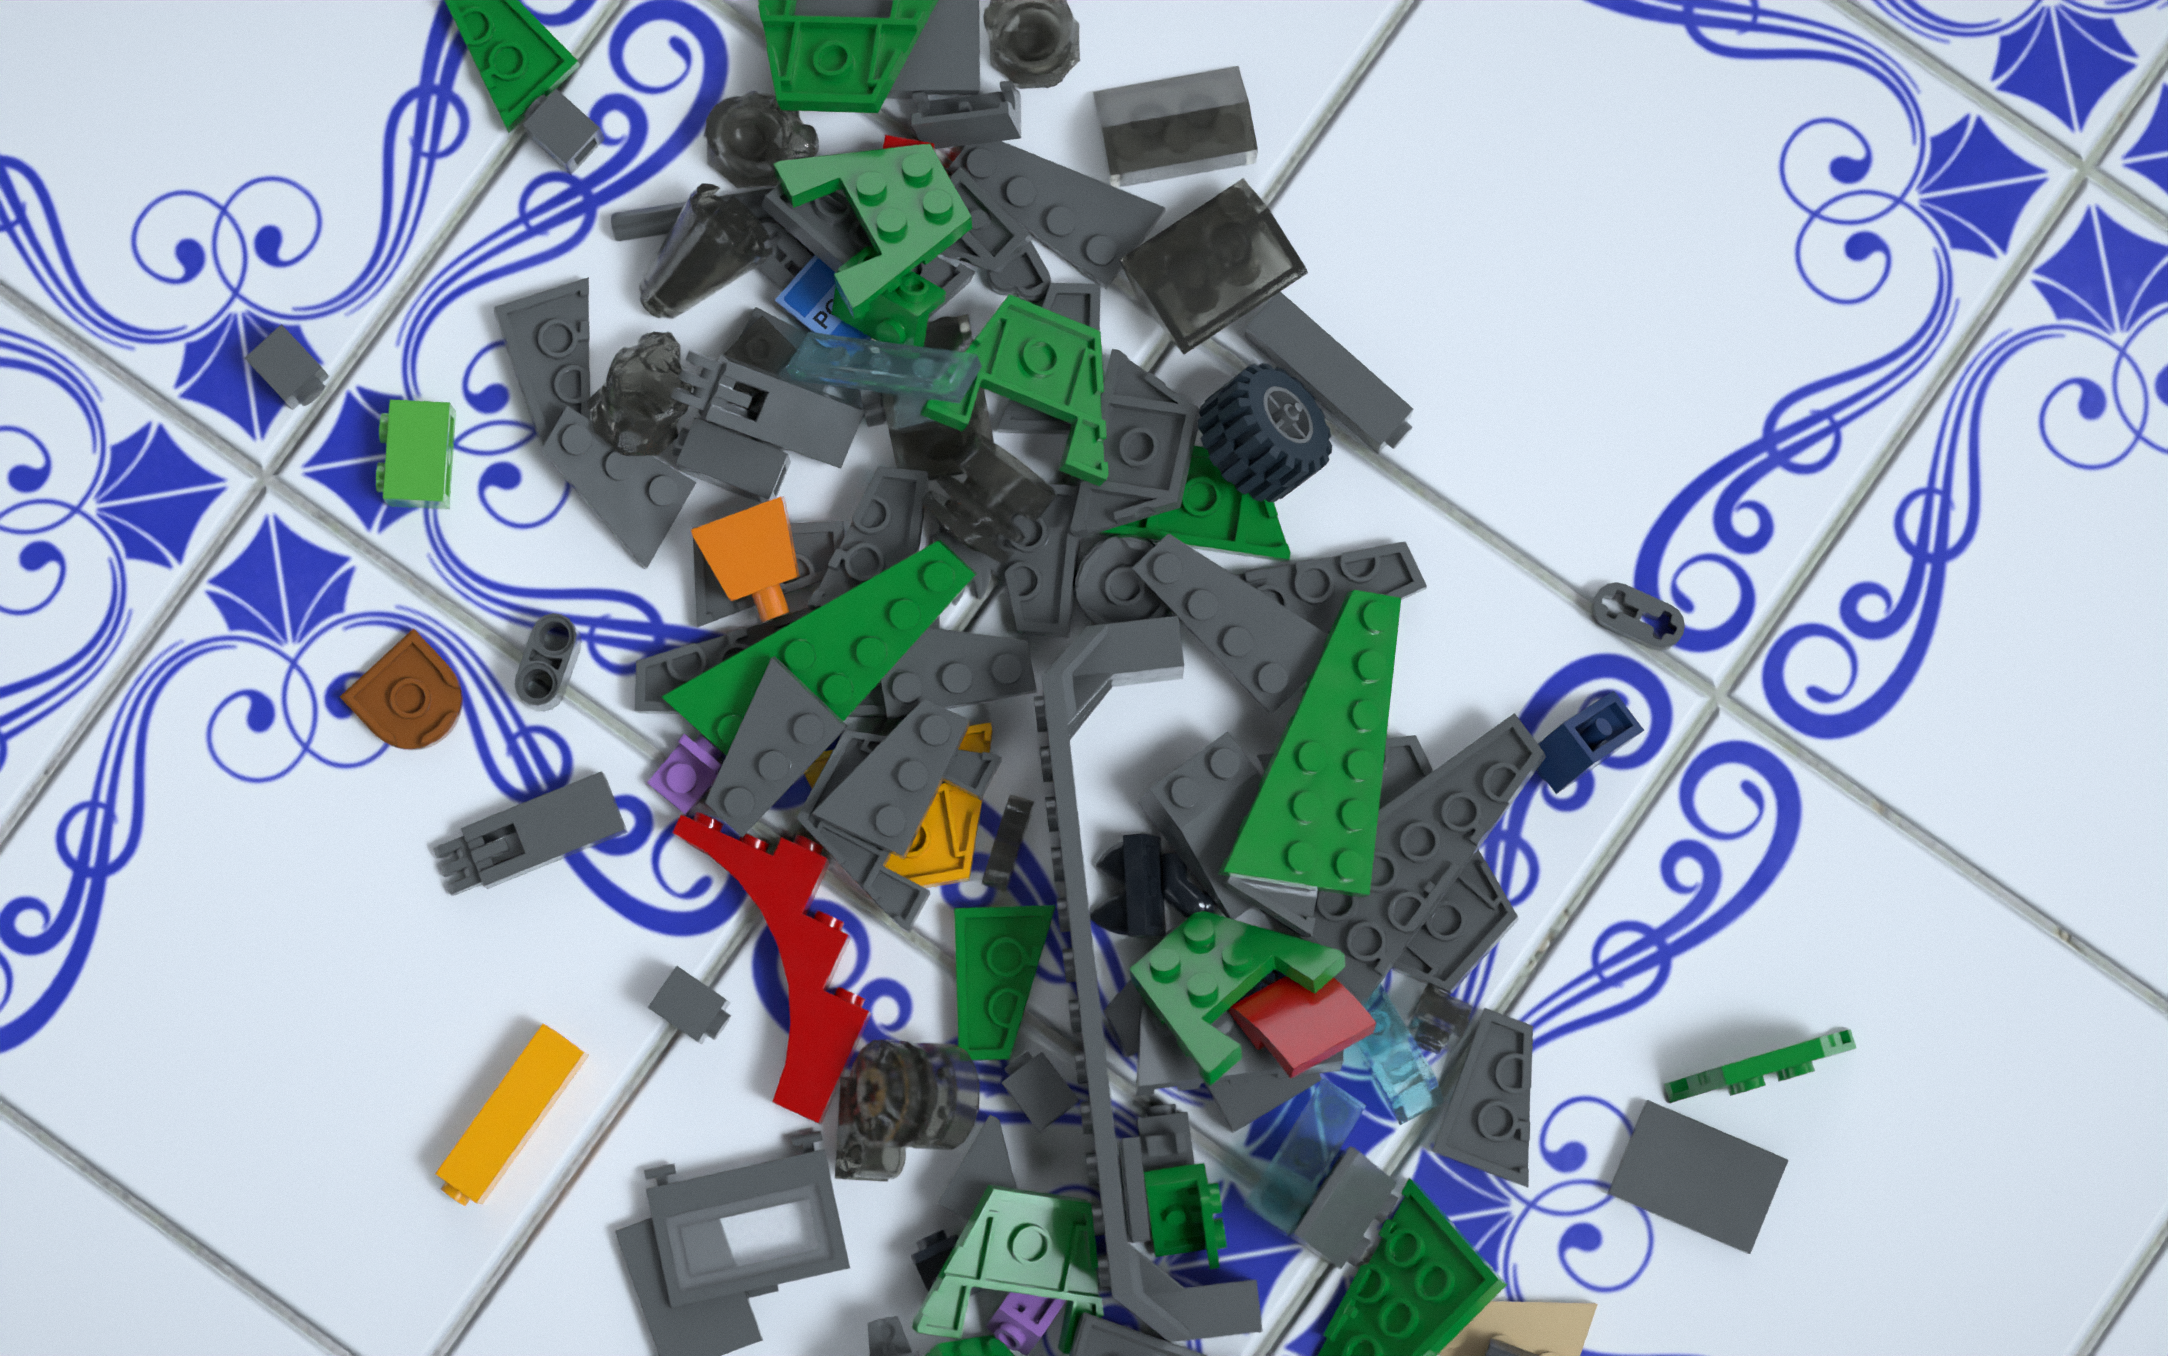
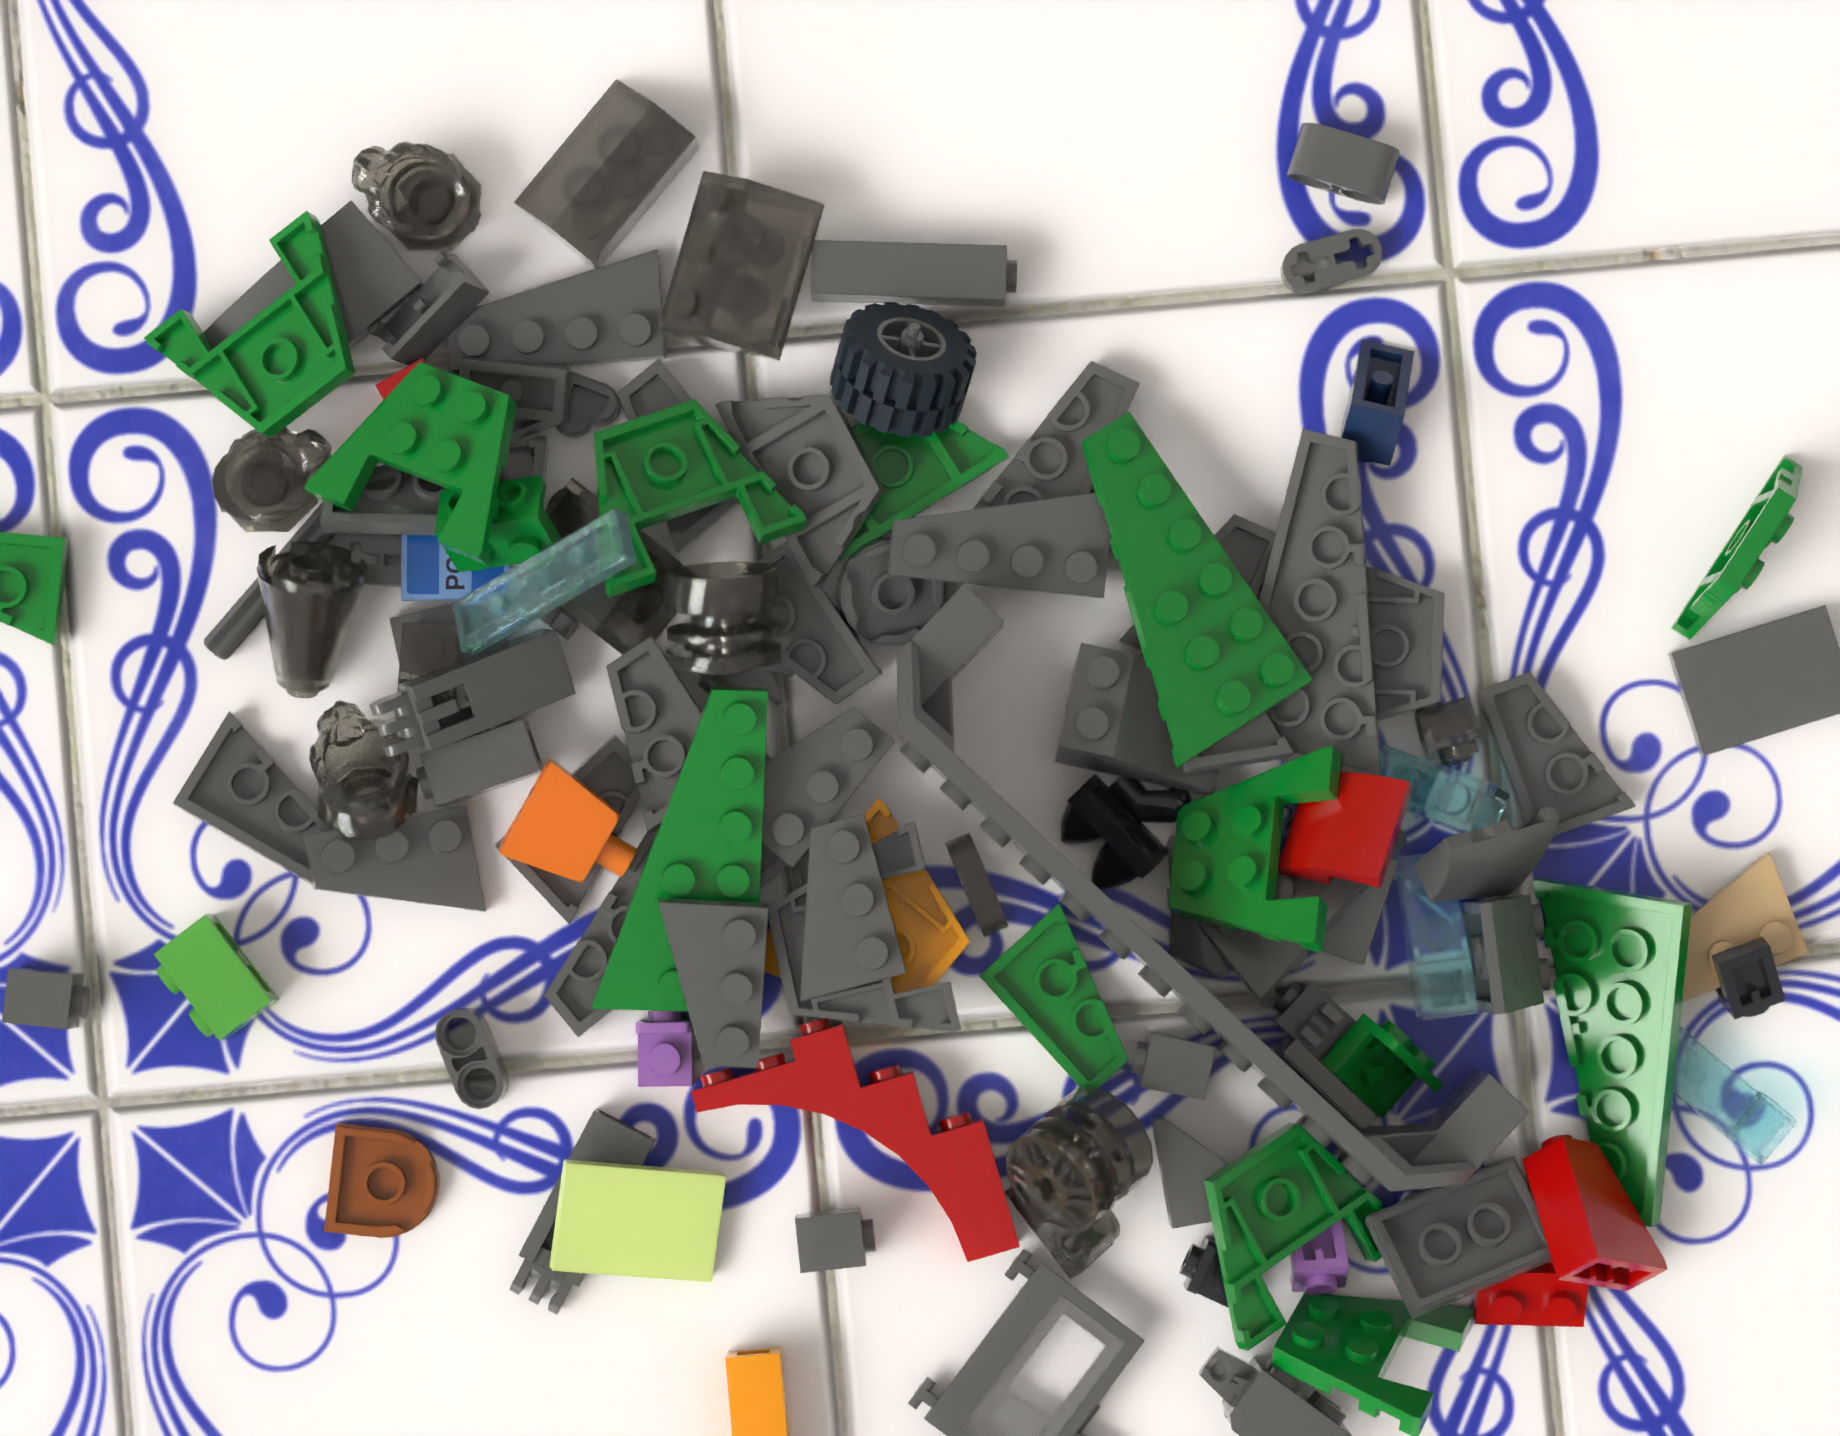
camera: 40 degrees left, 5 degrees up
(562, 130) = (100, 607): dark grey brick -> none
(565, 875) = (637, 1221): none -> yellowish green tile
(1387, 1130) = (1487, 859): none -> dark grey slope
(1705, 553) = (1343, 163): none -> dark grey beam

